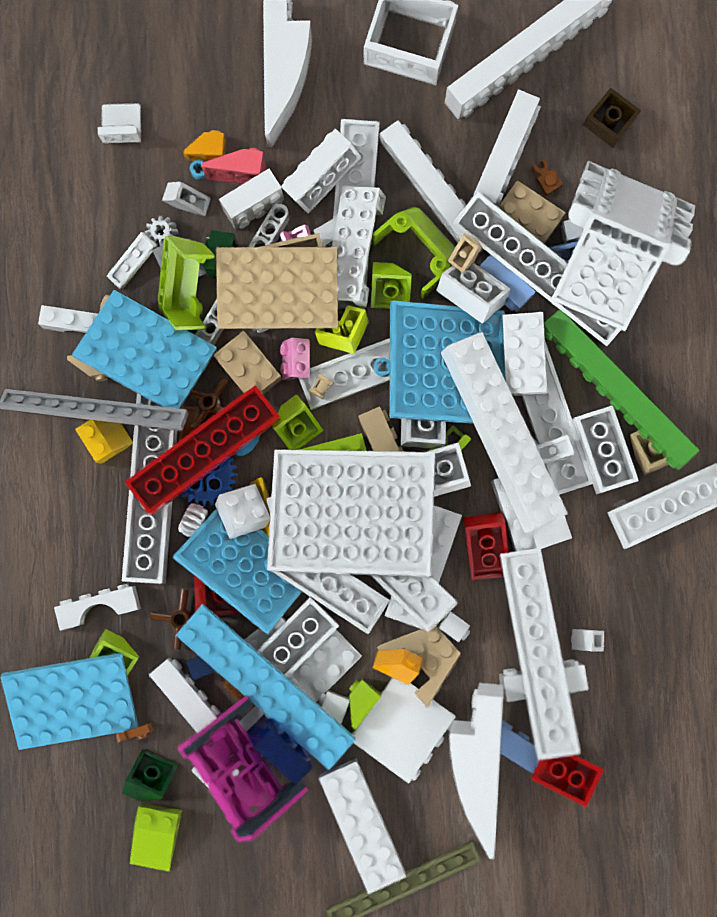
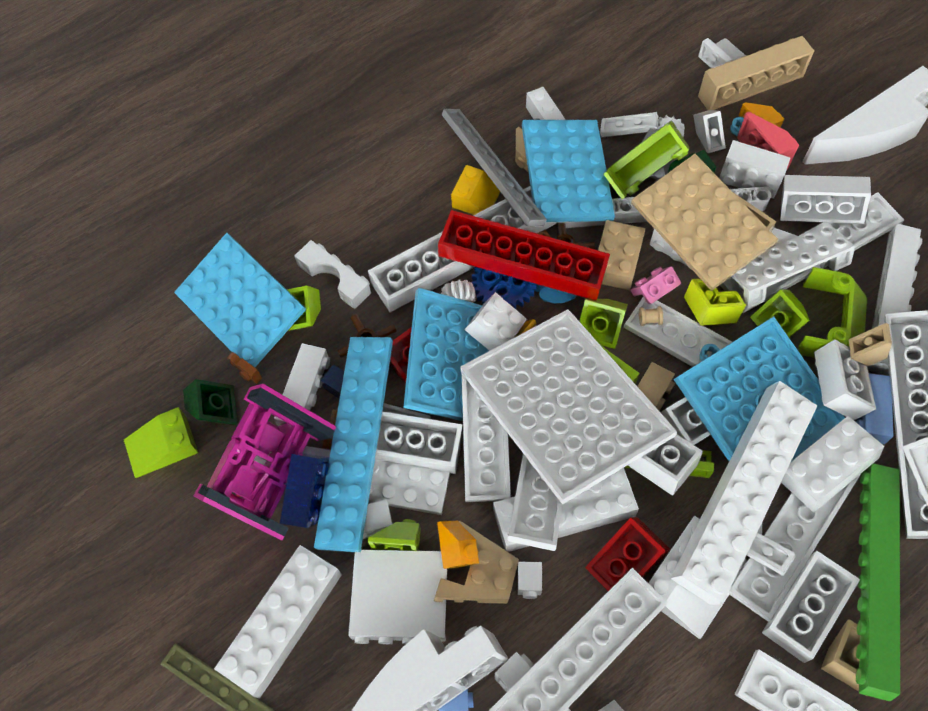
camera: 55 degrees right, 20 degrees down
(161, 116) = (755, 73): none -> tan brick

